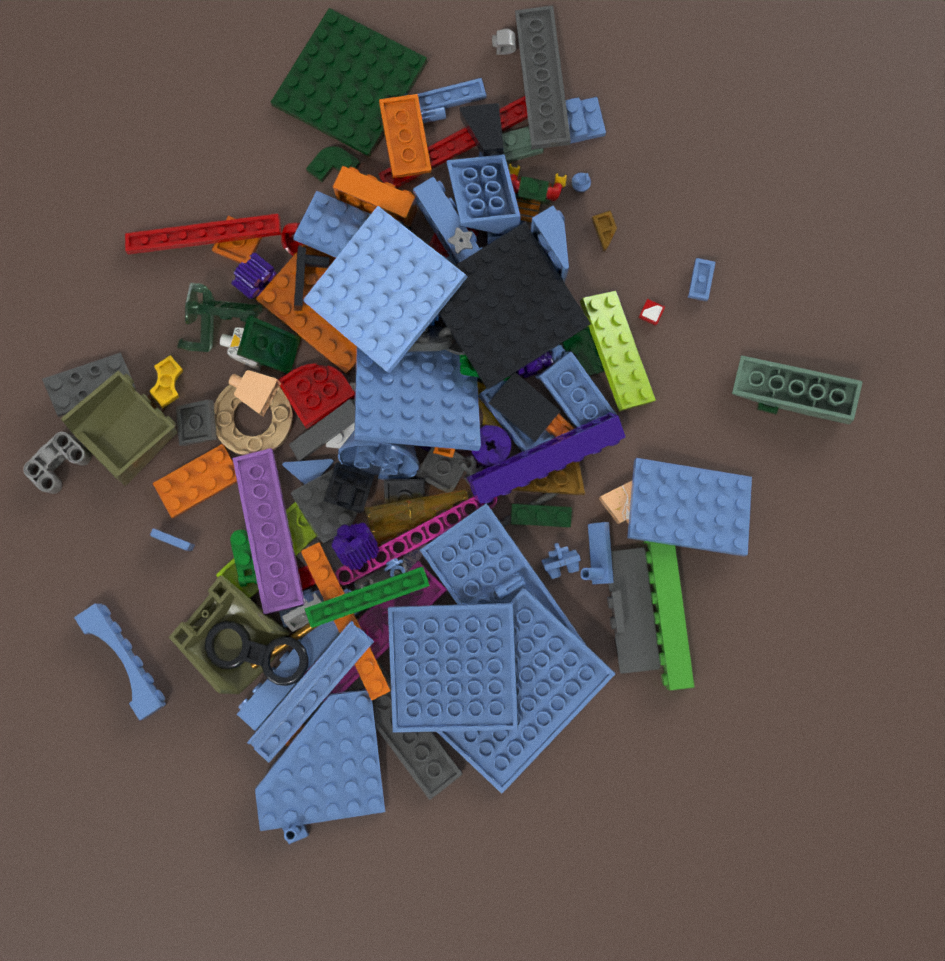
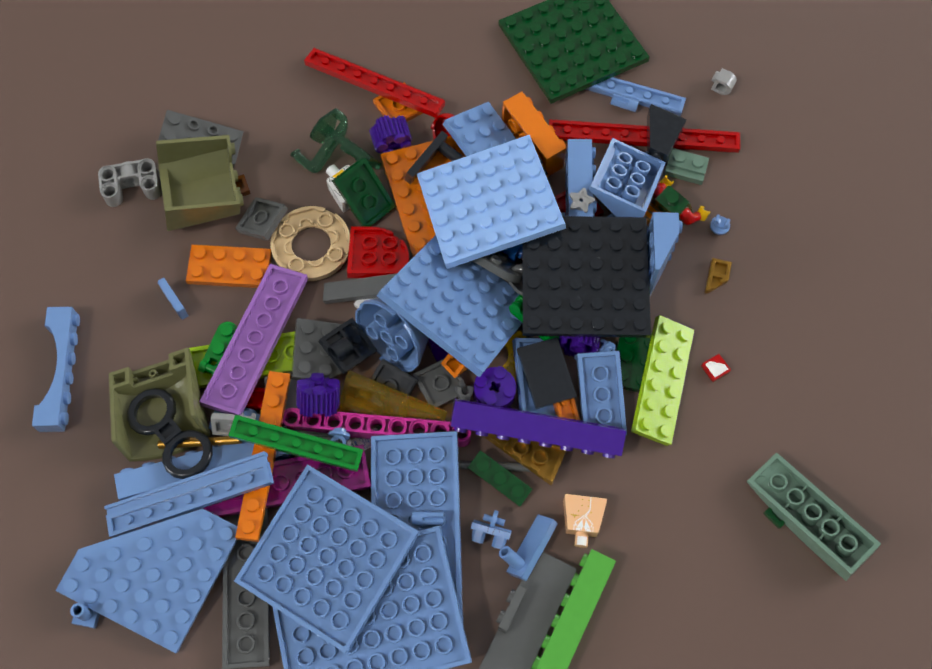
camera: 30 degrees right, 15 degrees down
(164, 390) = (255, 179): yellow tile -> none
(255, 390) = (328, 221): light nougat torso -> none
(308, 470) = (324, 312): medium blue tile -> none
(328, 159) = (509, 87): dark green plate -> none
(405, 136) = (590, 101): orange plate -> none
(542, 78) = (737, 125): dark grey plate -> none
(584, 119) = (752, 177): medium blue plate -> none
(690, 507) = (643, 558): medium blue plate -> none
(701, 279) = (779, 367): medium blue plate -> none

